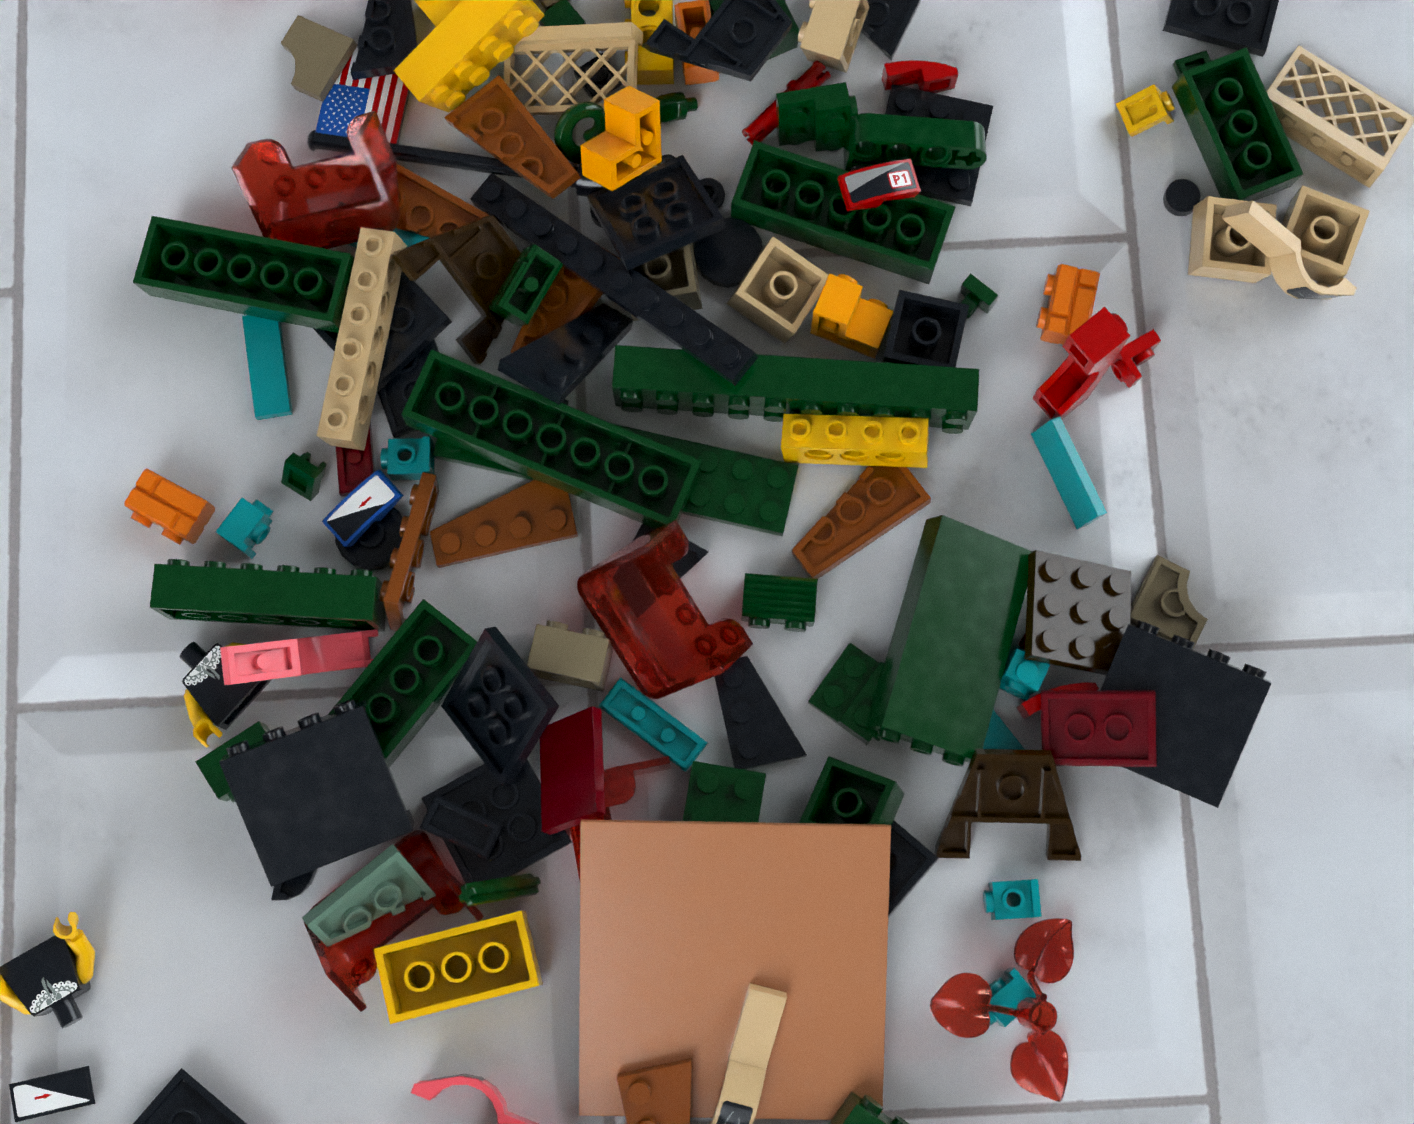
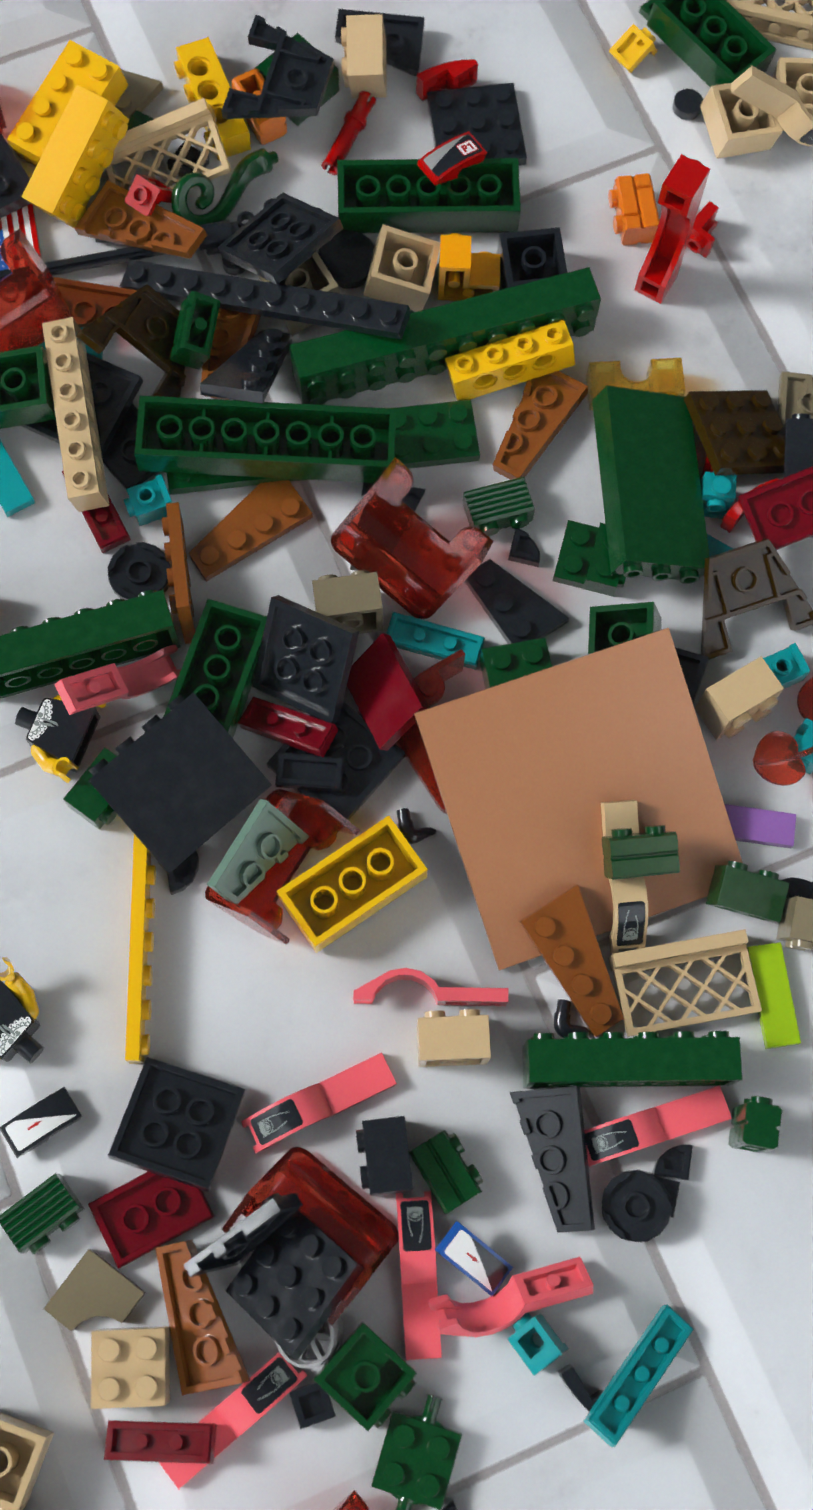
camera: 25 degrees left, 5 degrees down
(207, 974) = (141, 942): none -> yellow plate
(246, 525) = (31, 599): teal brick -> none
(302, 475) = (64, 544): dark green tile -> none
(362, 507) = (125, 550): slope -> none
(458, 767) = (288, 726): none -> dark red tile
(499, 889) = (363, 805): dark green axle -> none
(534, 107) = (146, 193): none -> red bracket
(542, 924) = (407, 828): none -> black animal
(628, 144) = (236, 192): light orange brick -> none
(766, 1058) = (640, 853): none -> dark green brick
(790, 656) = (524, 549): none -> black tile
(816, 116) = (379, 128): dark green plate -> none
(919, 1063) = (762, 826): none -> medium lavender tile
(924, 140) = (479, 115): dark green beam -> none
(950, 919) = (739, 698): none -> tan brick
(977, 295) = (563, 219): dark green tile -> none
(1016, 524) = (662, 376): none -> clear yellow arch
(1068, 473) = (687, 332): teal tile -> none

